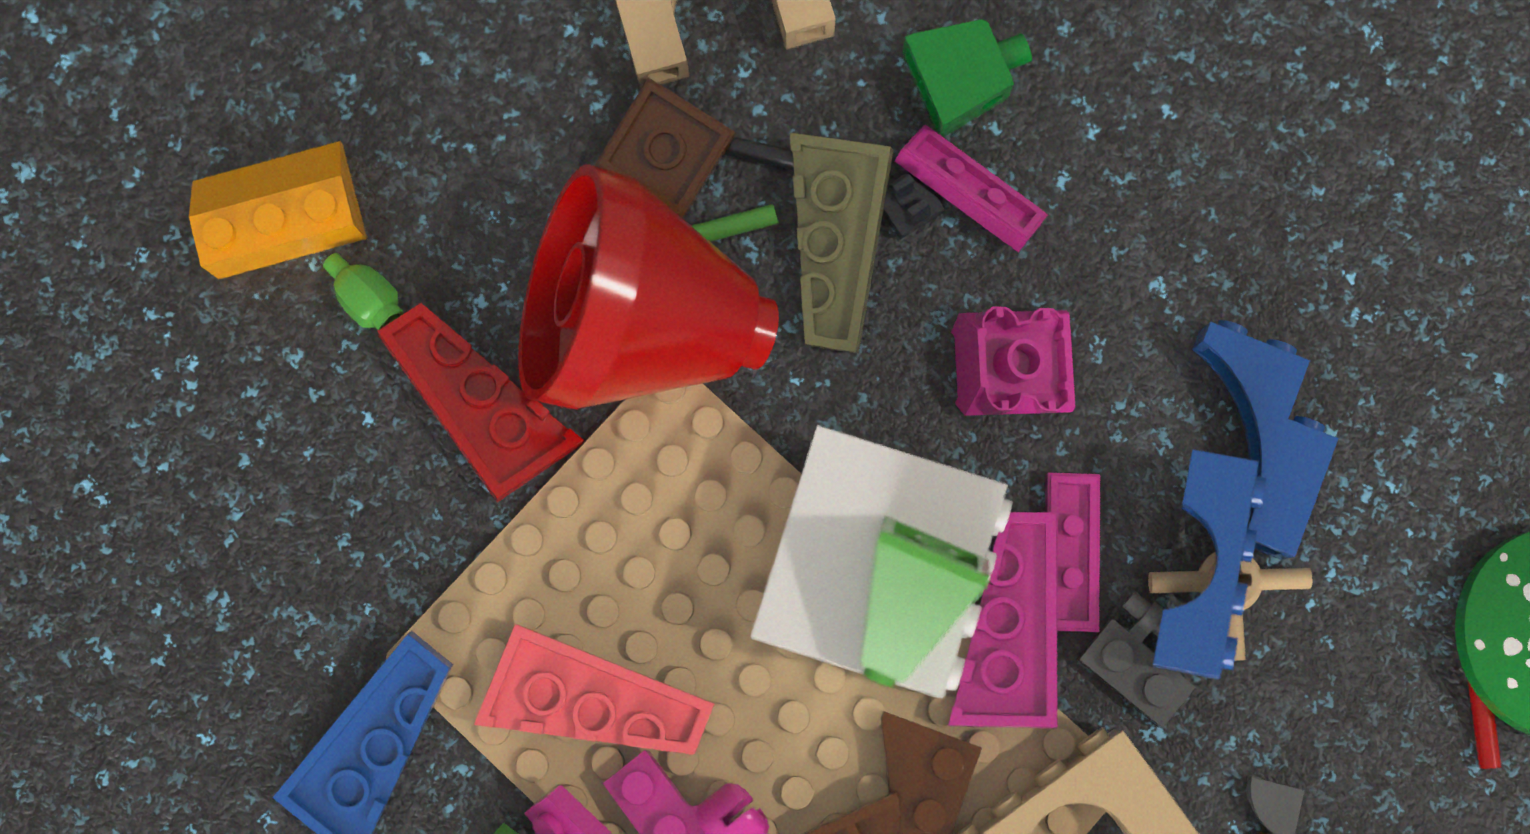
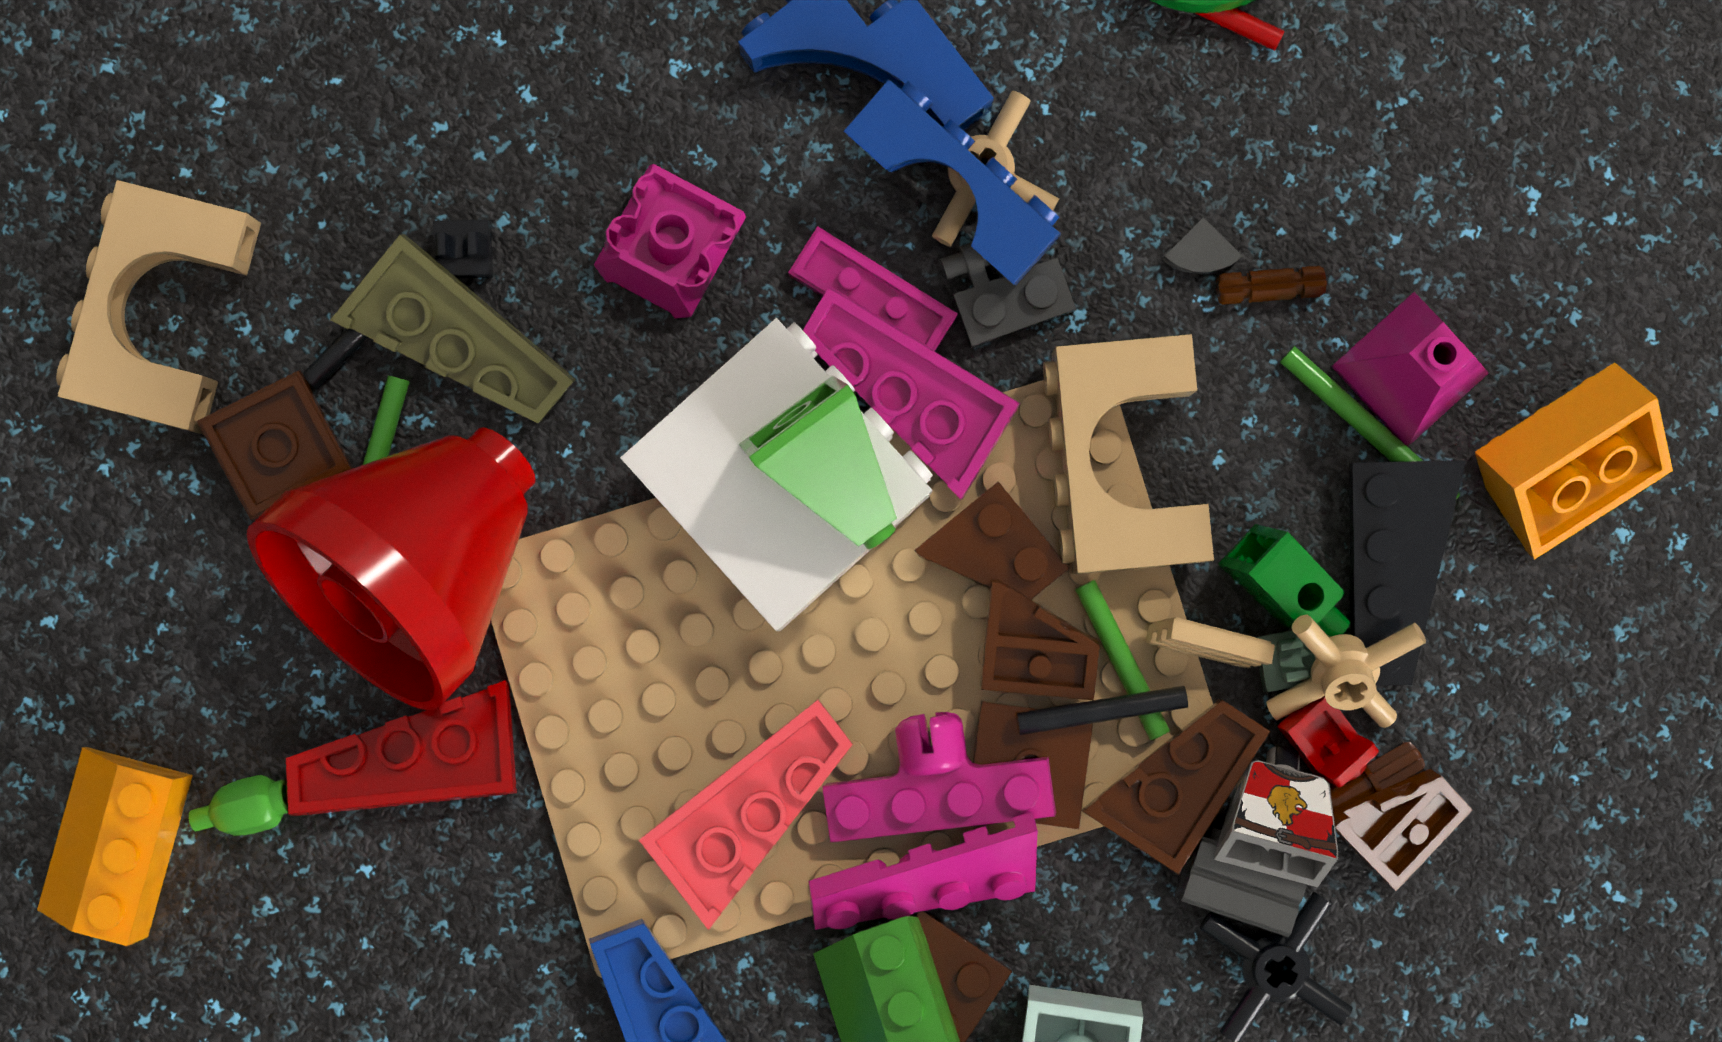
camera: 65 degrees left, 5 degrees up
(962, 71) = (367, 124): green torso -> none
(971, 188) = (483, 183): dark pink tile -> none

